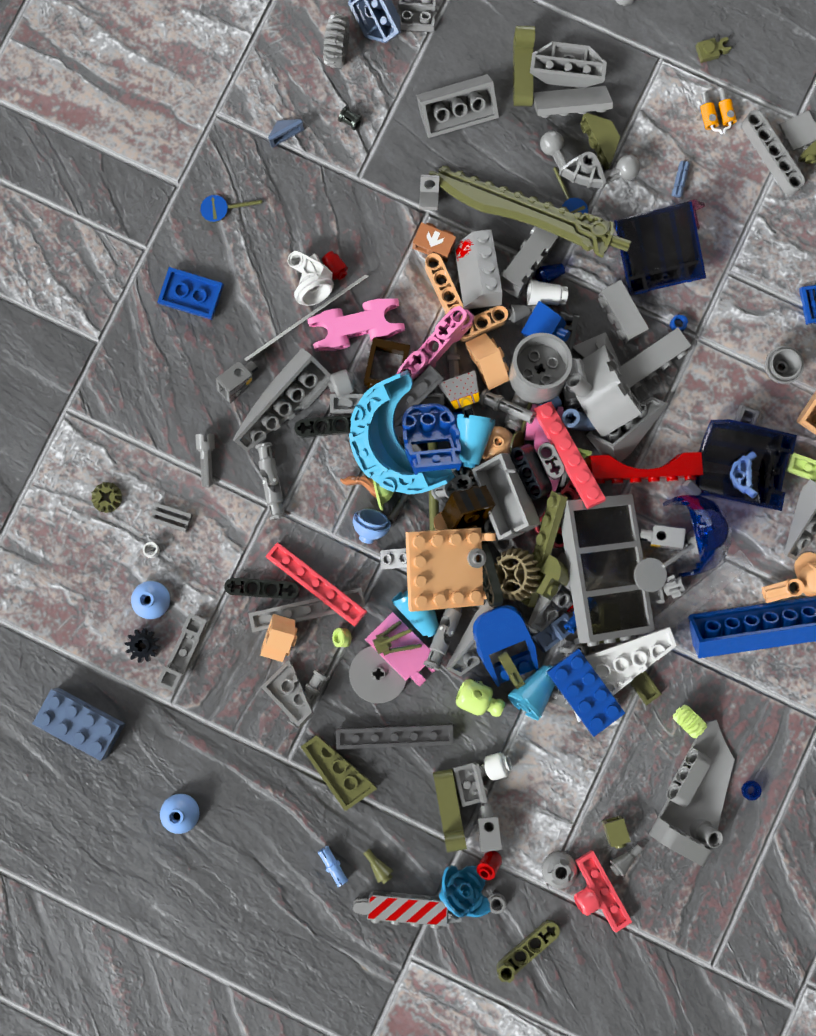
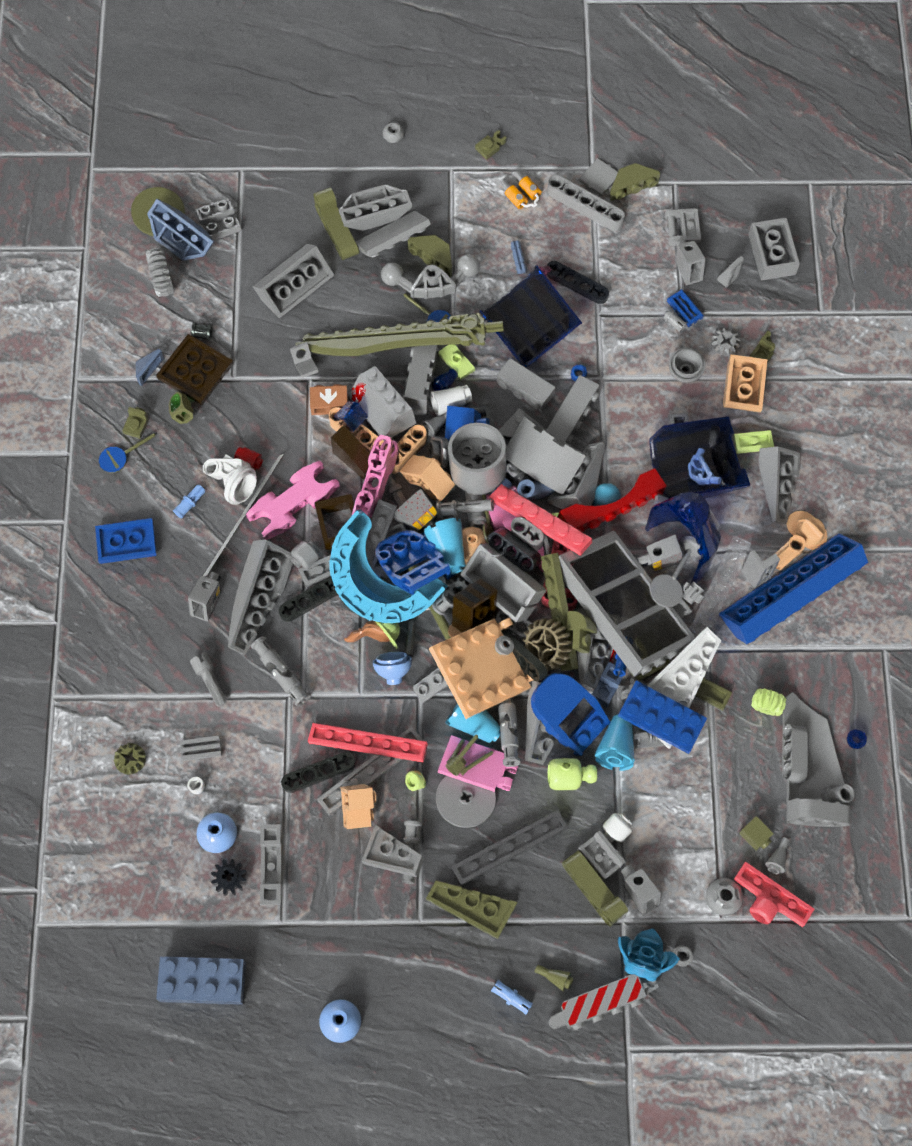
camera: 30 degrees left, 15 degrees down
(249, 182) = (135, 422): none -> olive bracket
(263, 281) = (189, 501): none -> light blue axle
(295, 187) = (180, 408): none -> olive rock
(326, 154) = (194, 369): none -> dark brown plate
(429, 303) = (350, 451): none -> dark brown slope
(446, 268) = (351, 414): none -> clear blue panel
(489, 865) = (657, 920): red brick -> none
(510, 340) = (439, 450): none -> flat silver piece
(511, 670) = (585, 730): olive piece -> none
(530, 952) = (737, 986): olive beam -> none
(570, 258) = (456, 360): none -> yellowish green plate
(577, 379) = (516, 454): light grey piece -> none
(643, 456) = (606, 494): none -> medium azure hair
(727, 228) = (578, 280): none -> black beam
(743, 596) = (759, 571): none -> light grey panel
(796, 313) = (674, 320): none -> light grey pin

